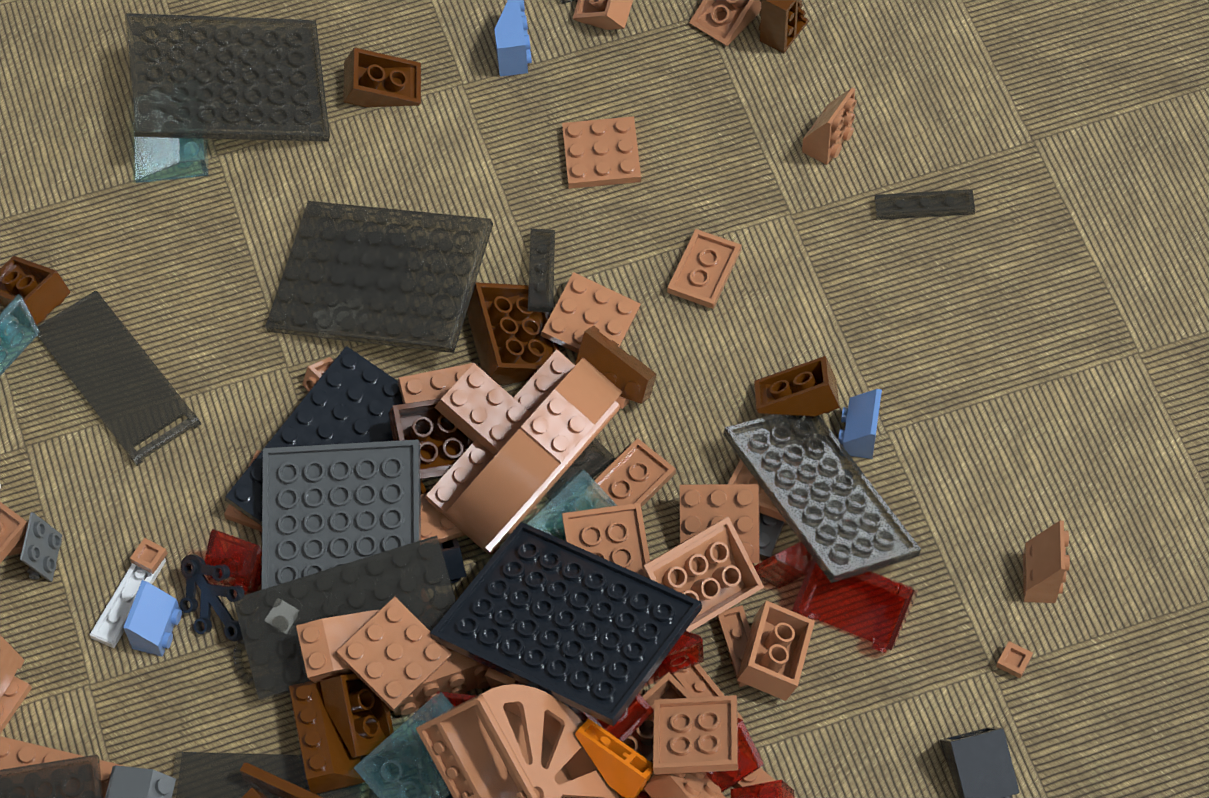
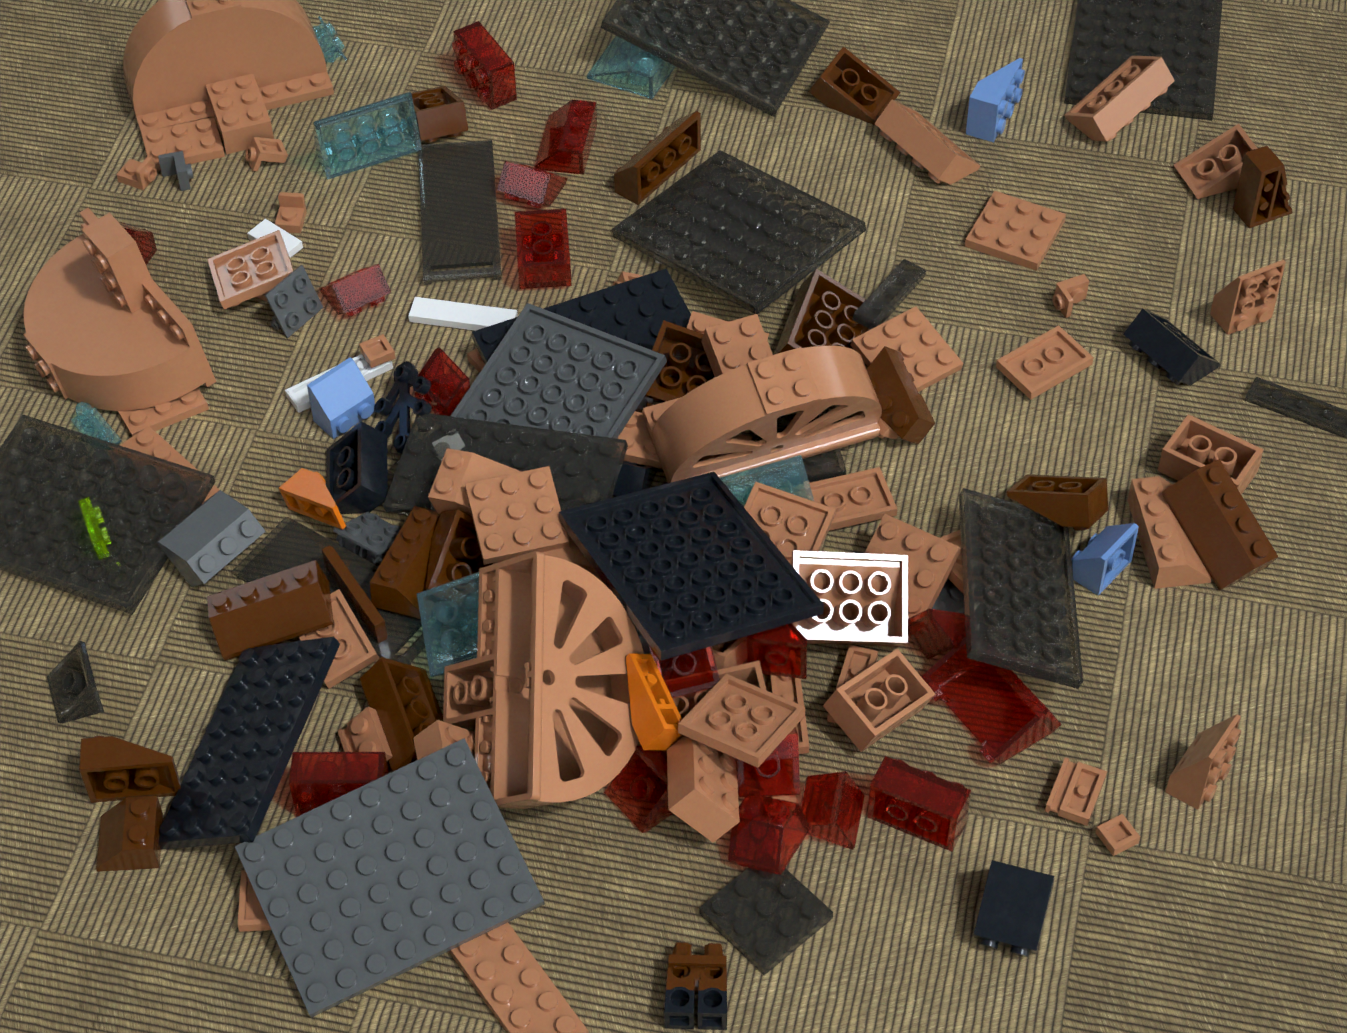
camera: 30 degrees right, 10 degrees down
(44, 220) = (484, 65): none -> clear red brick
(83, 504) = (356, 290): none -> clear red slope
(164, 255) = (568, 138): none -> clear red slope
(164, 318) = (530, 183): none -> clear red slope
(189, 724) = (310, 497): none -> orange slope
(193, 479) = (457, 314): none -> white tile
(209, 678) = (358, 470): none -> black slope
(223, 379) = (542, 248): none -> clear red brick
(260, 236) = (659, 159): none -> reddish brown slope
(264, 729) = (368, 537): none -> dark grey hinge
(476, 105) = (925, 144): none -> nougat slope
(684, 194) = (1070, 292): none -> nougat bracket
(794, 204) = (1169, 348): none -> black slope
(794, 761) = (833, 807): none -> clear red slope
(860, 720) = (918, 803): none -> clear red brick
(887, 368) = (1164, 543): none -> nougat slope
(889, 293) = (1200, 444): none -> nougat brick
(934, 350) = (1220, 525): none -> reddish brown slope
(962, 640) = (1076, 791): none -> nougat plate

